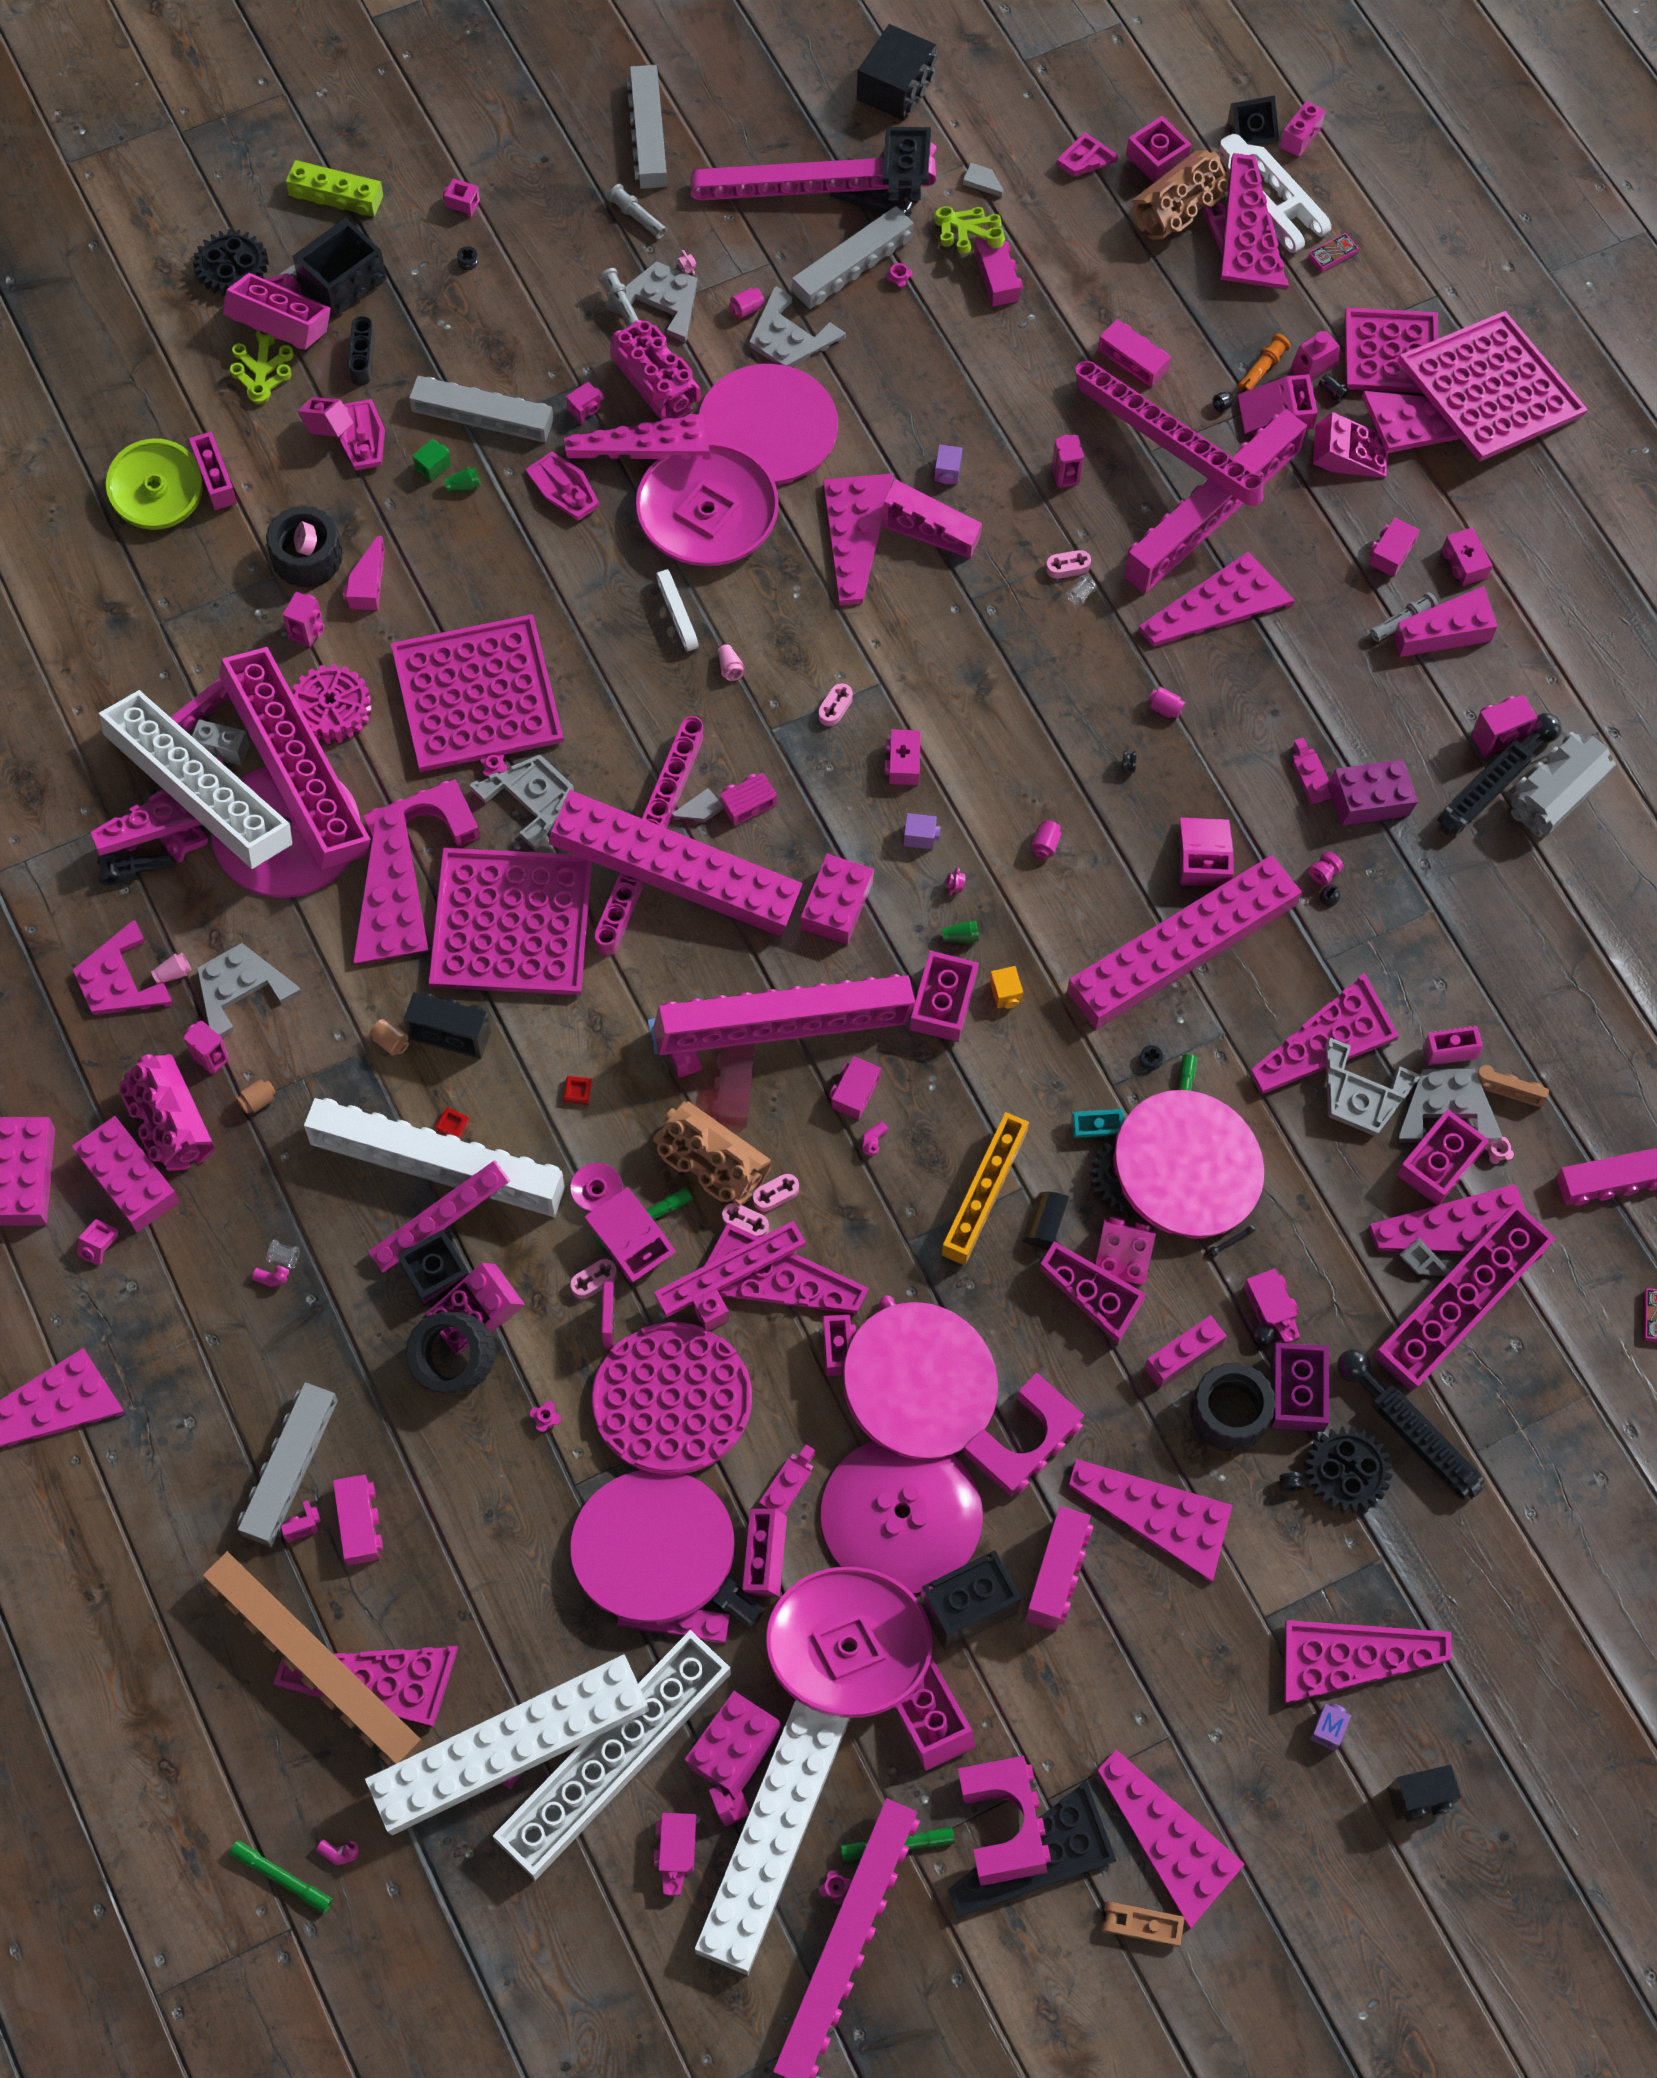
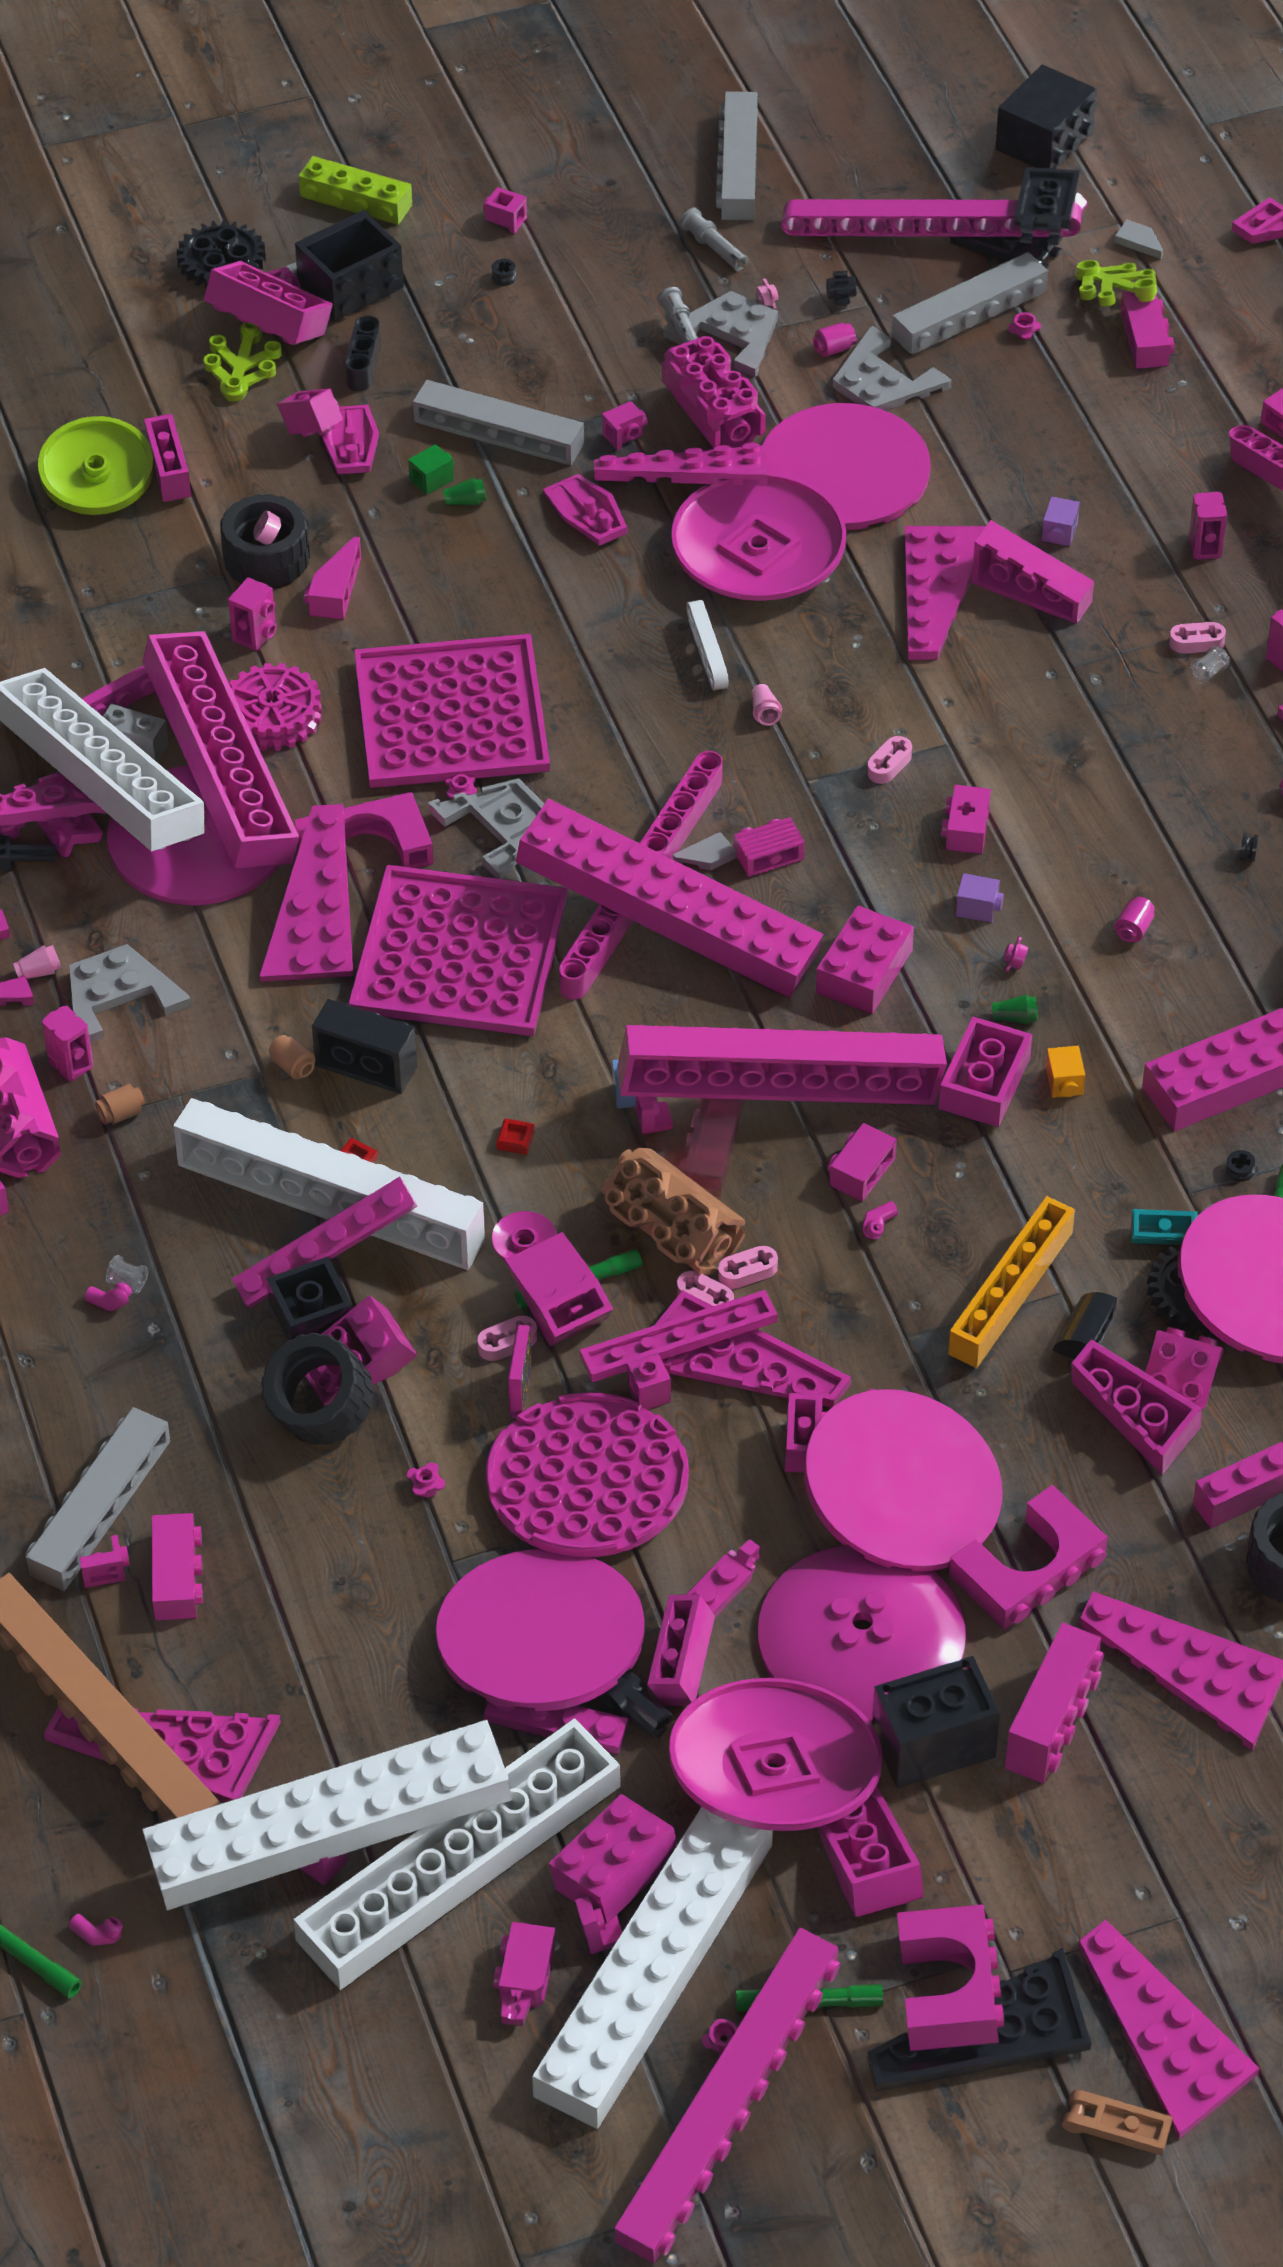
camera: 10 degrees right, 15 degrees down
(746, 251) = (841, 287): none -> black gear

